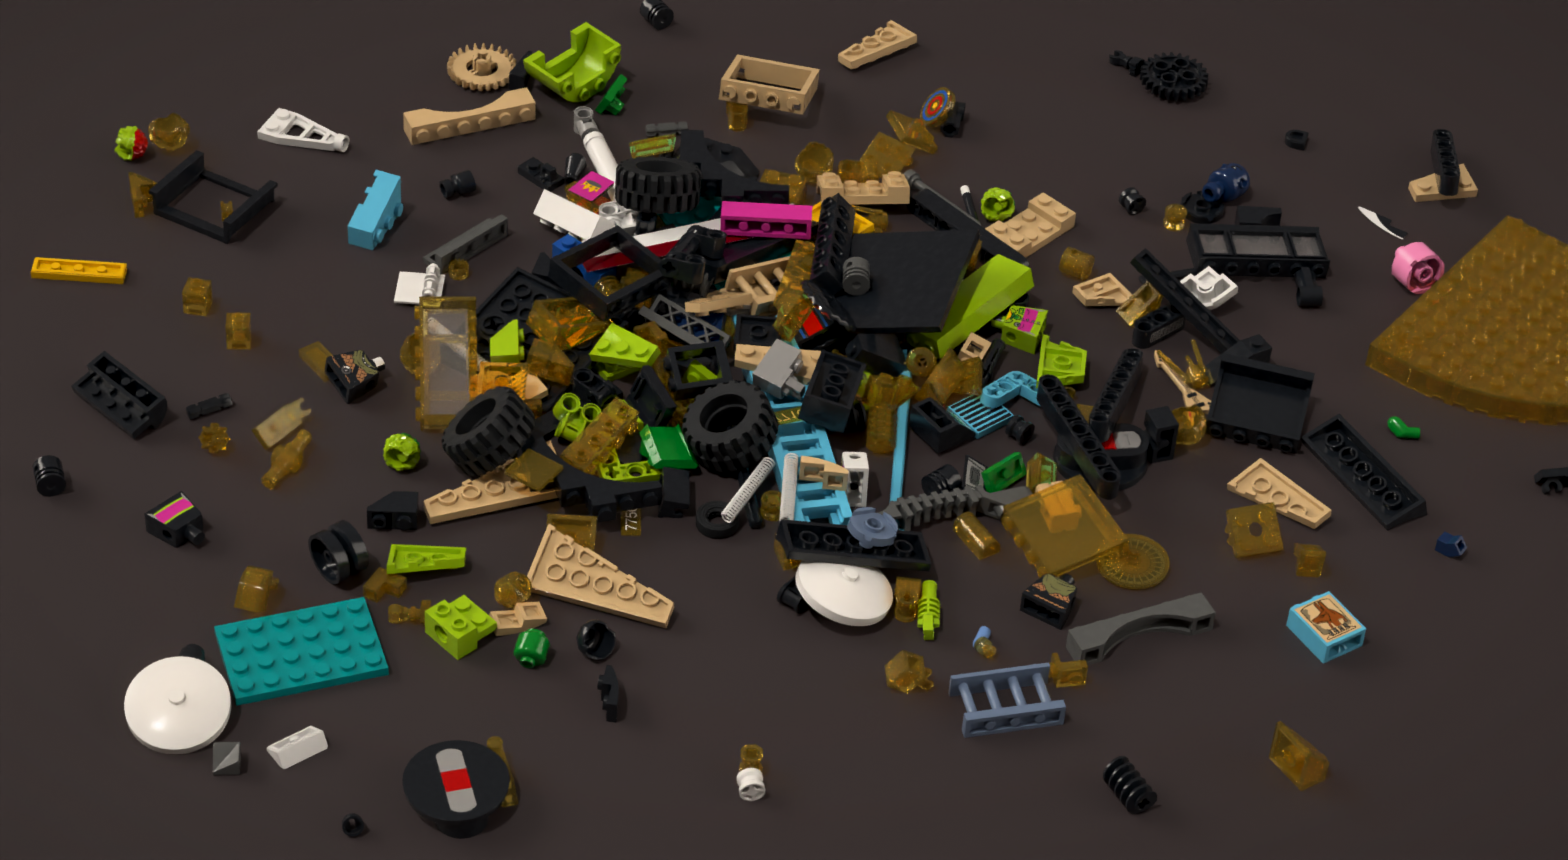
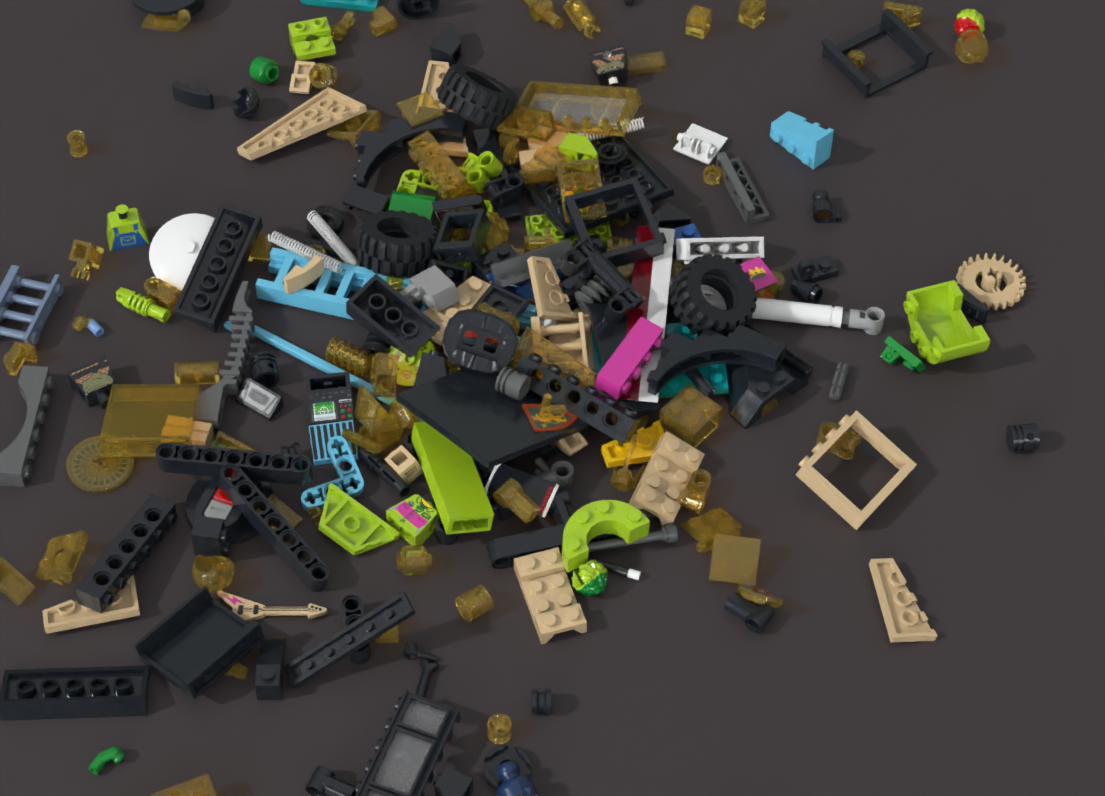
camera: 120 degrees right, 10 degrees up
(282, 121) = (958, 121): white plate -> none
(401, 451) = (507, 65): lime piece -> none
(423, 558) = (390, 43): lime wing -> none
(431, 125) = (915, 215): tan arch -> none
(624, 348) = (518, 210): lime wing -> none
(631, 522) = (374, 183): clear yellow sticker -> none
(652, 145) = (814, 356): clear yellow slope -> none
(750, 784) = (57, 135): white wheel -> none
(814, 161) = (723, 459): clear yellow hair -> none
(848, 657) = (125, 228): none -> lime torso
(858, 474) = (305, 312): white torso -> none
(872, 528) = (227, 285): sand blue plate -> none
(873, 247) = (548, 416): none -> clear yellow shield
(960, 204) = (598, 519): none -> lime brick
(1004, 473) = (249, 422): green hinge -> none
(1065, 313) = (413, 560): none -> clear yellow head
(1102, 291) = (429, 609): tan wing -> none
(1195, 373) = (274, 620): clear yellow plant -> none
(1210, 287) = (371, 686): white brick -> none
(1216, 486) = (126, 553): none -> black brick

